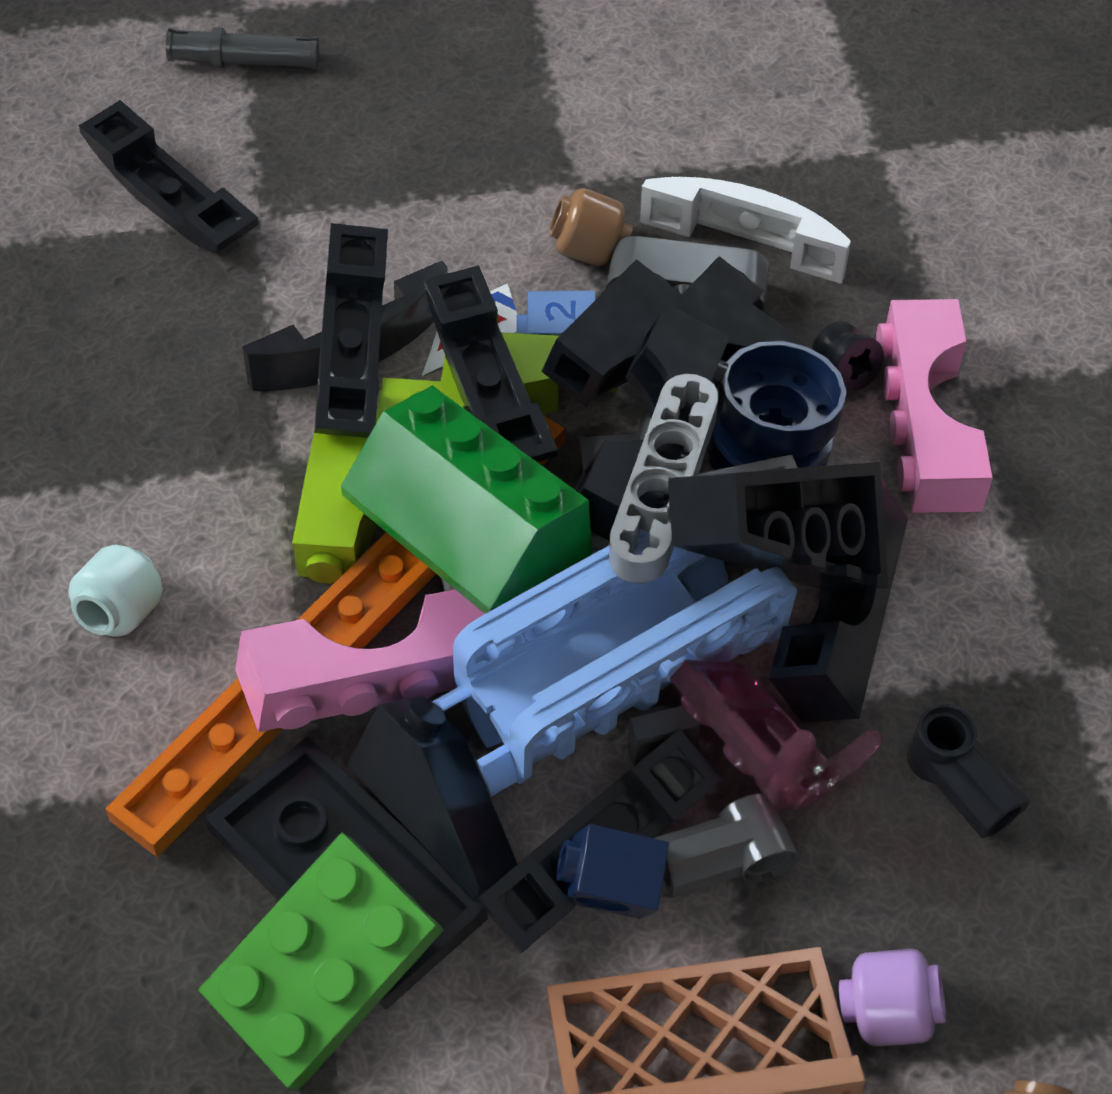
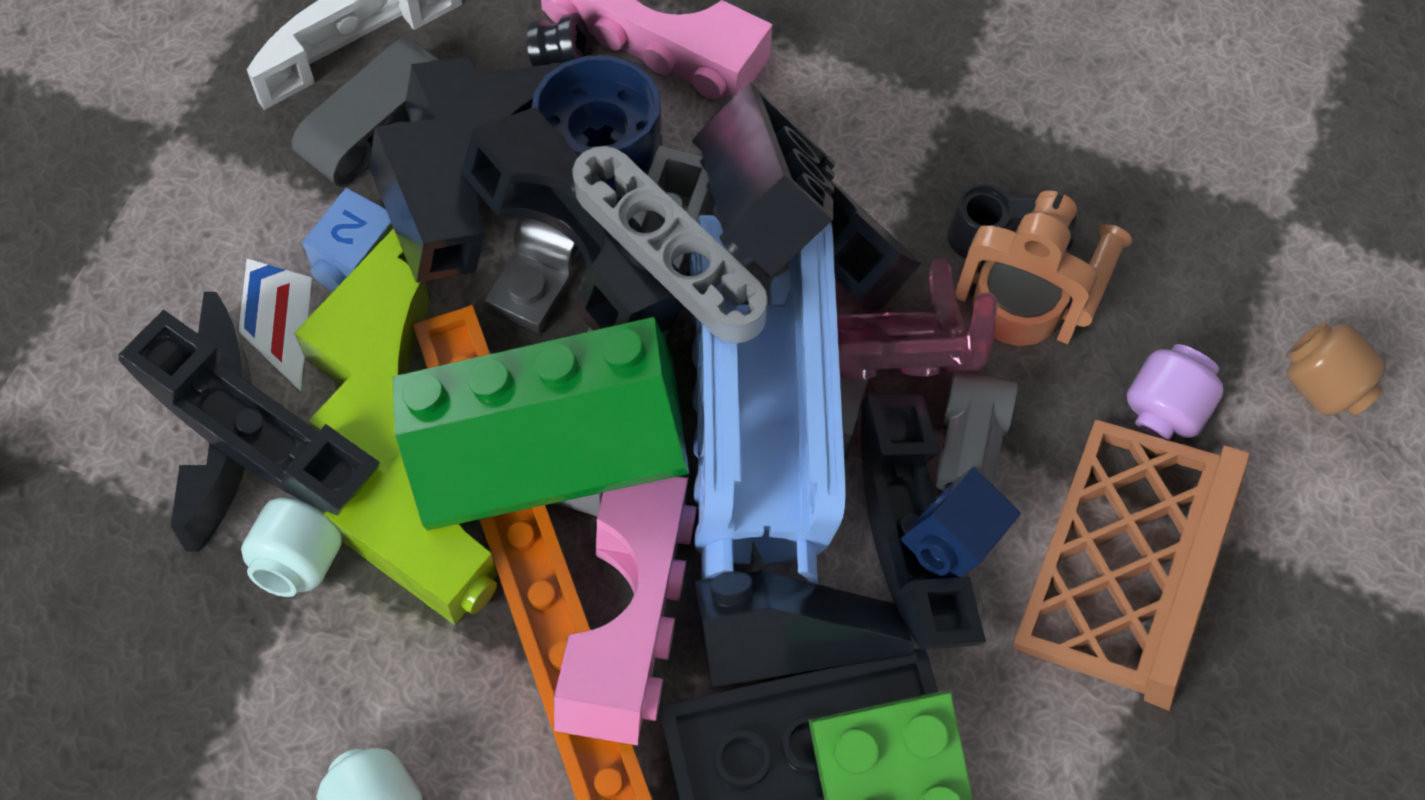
camera: 60 degrees left, 10 degrees up
(280, 430) = (290, 547): none -> light aqua head
(482, 362) = (377, 328): black slope -> none
(588, 226) = (251, 150): medium nougat head -> none
(903, 812) = (1036, 275): none -> nougat piece

